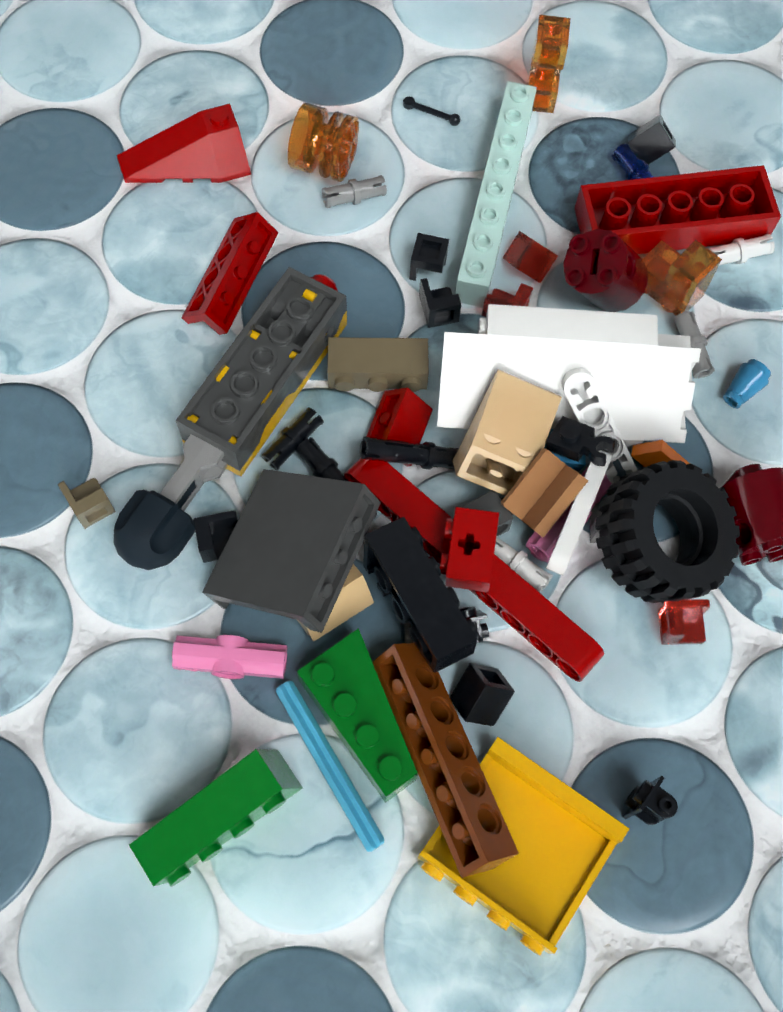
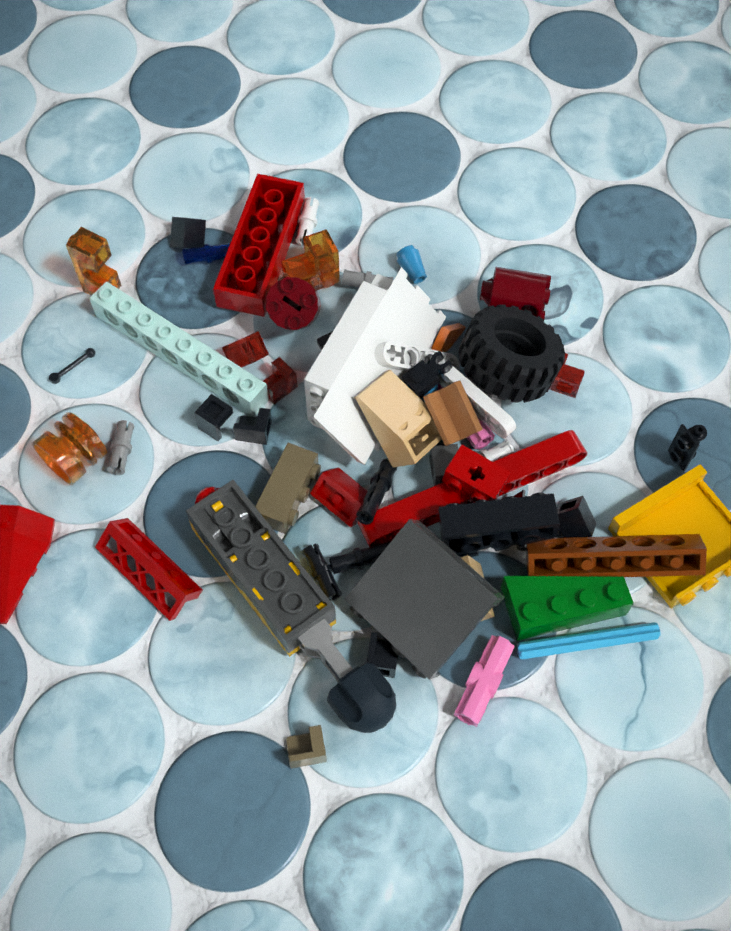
camera: 65 degrees left, 5 degrees down
(214, 816) = (608, 730): green wedge -> none

